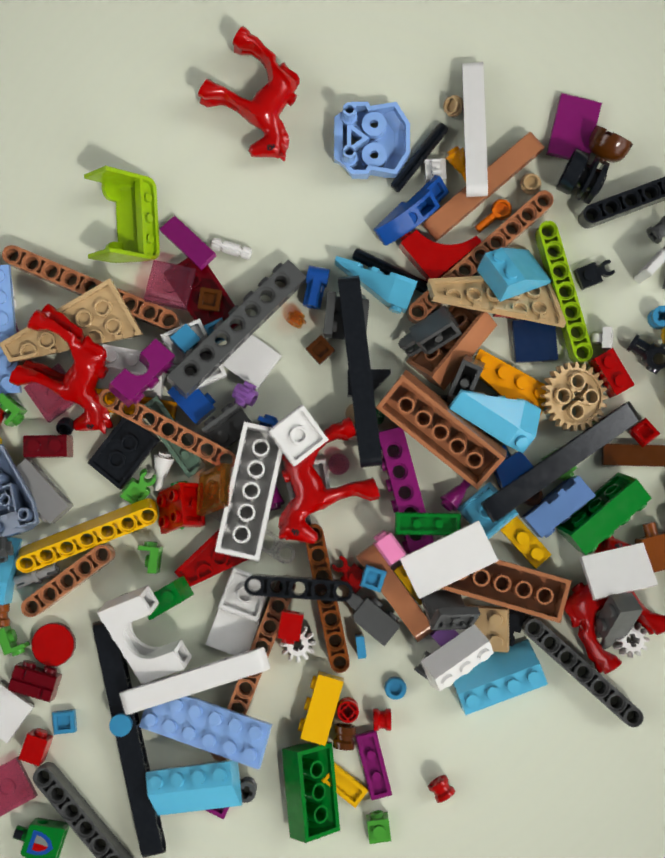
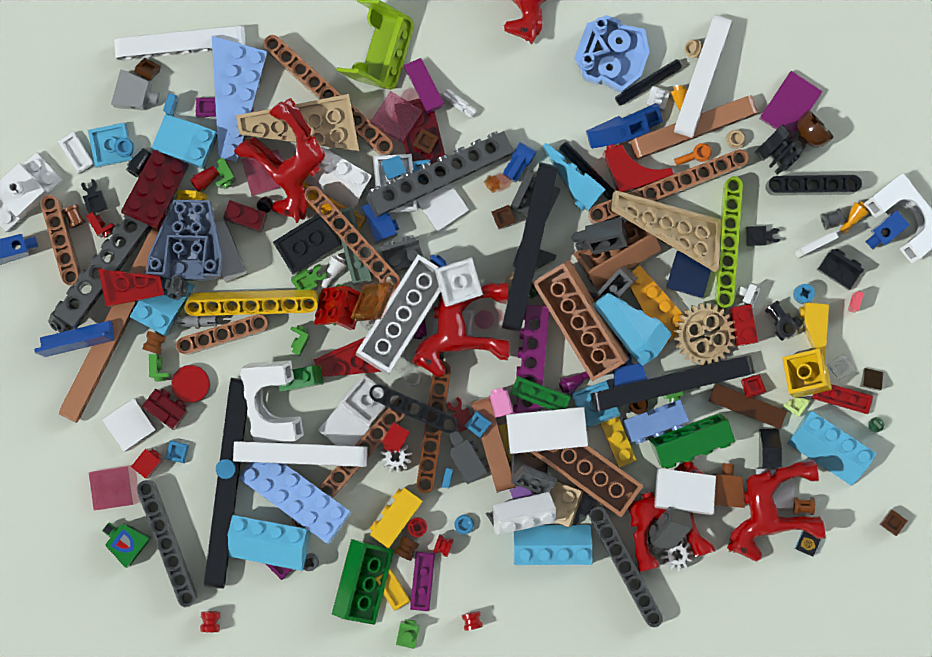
camera: 20 degrees right, 0 degrees up
(130, 387) = (334, 192): magenta arch -> none
(245, 394) = (426, 232): medium lavender gear -> none
(511, 272) = (689, 210): medium azure slope -> none

